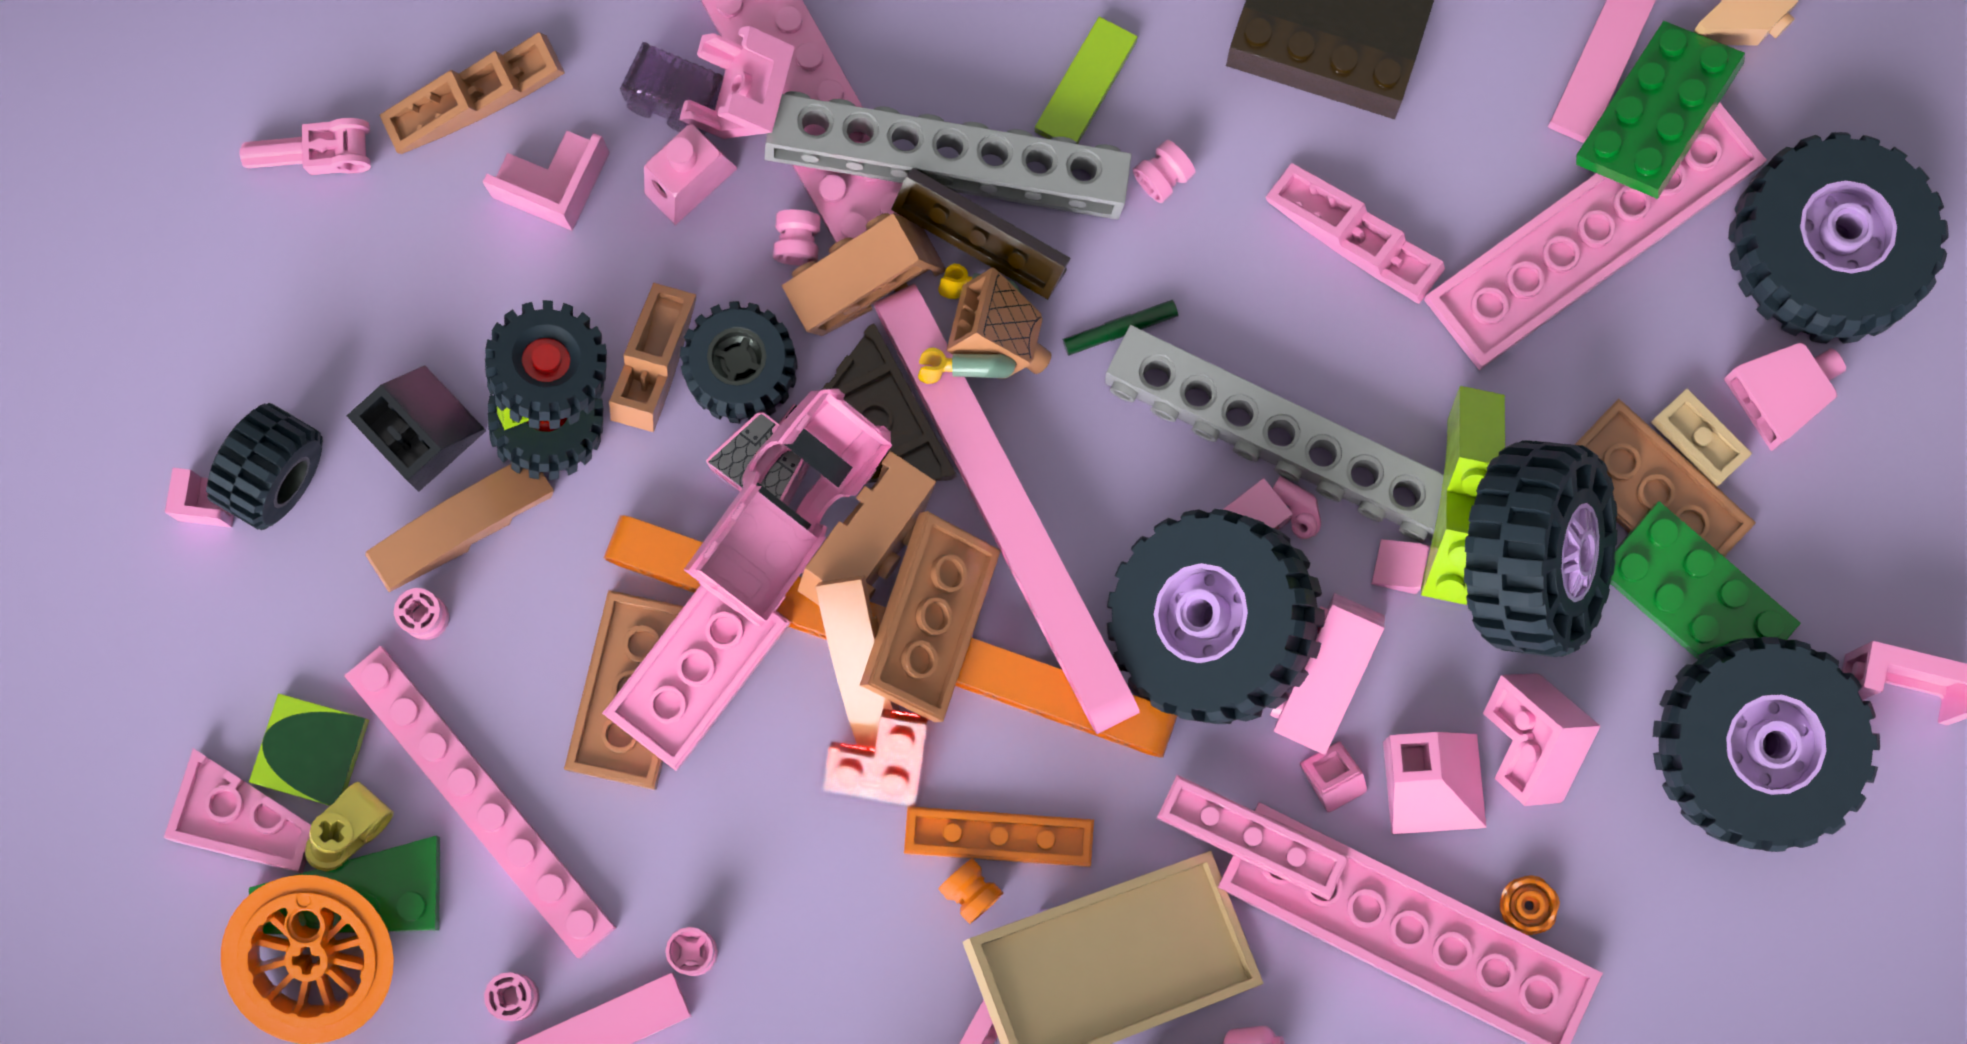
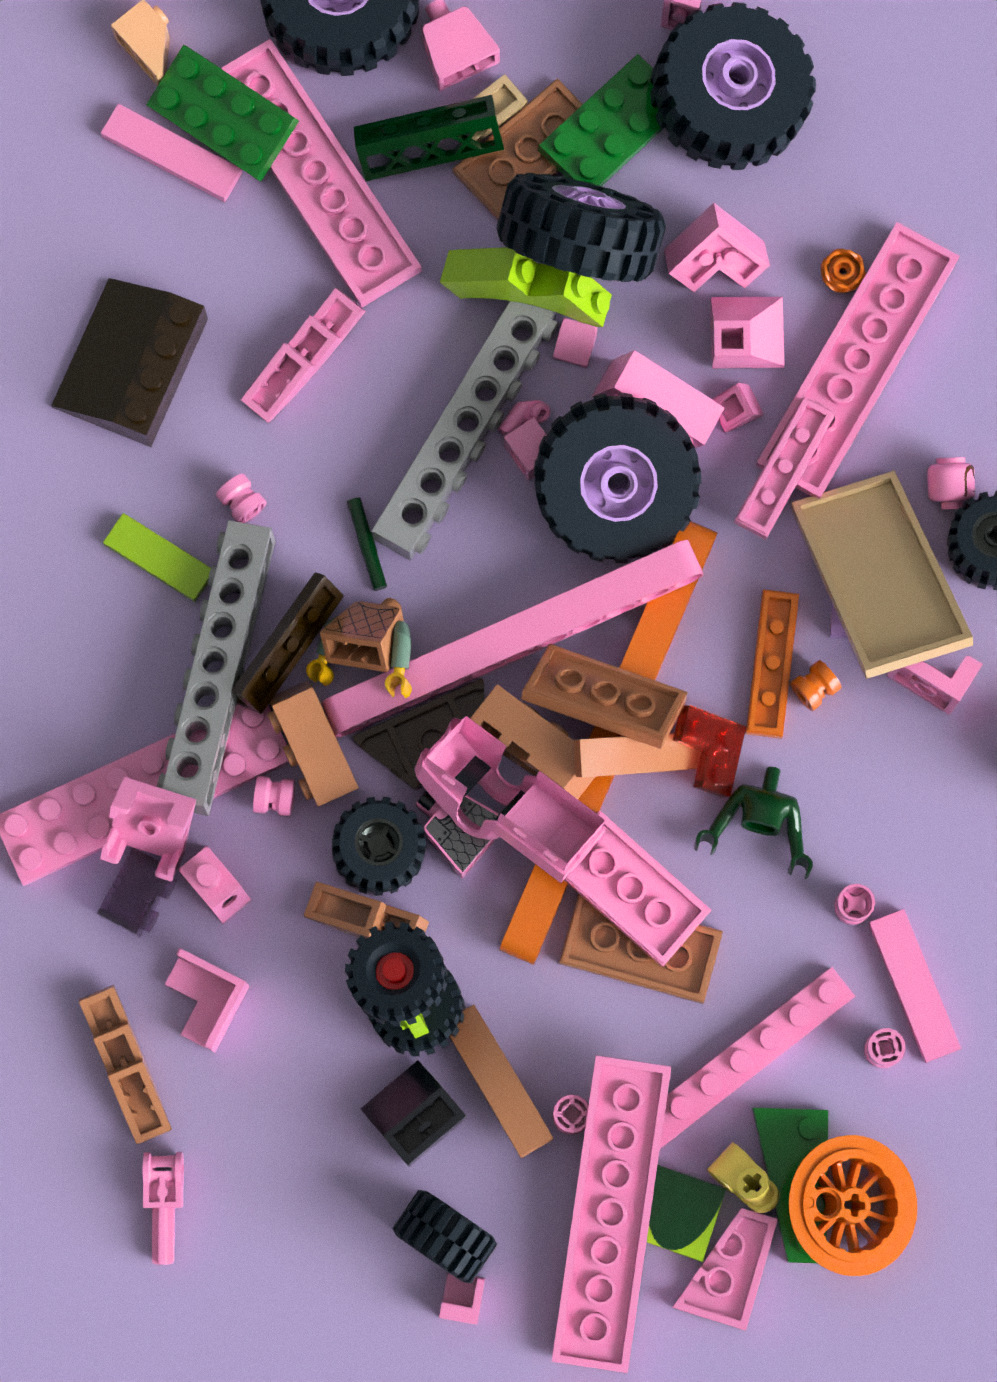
camera: 90 degrees left, 0 degrees up
(301, 666) = (611, 1214): none -> bright pink plate
(802, 832) = (762, 814): none -> dark green piece
(1660, 354) = (417, 129): none -> dark green fence

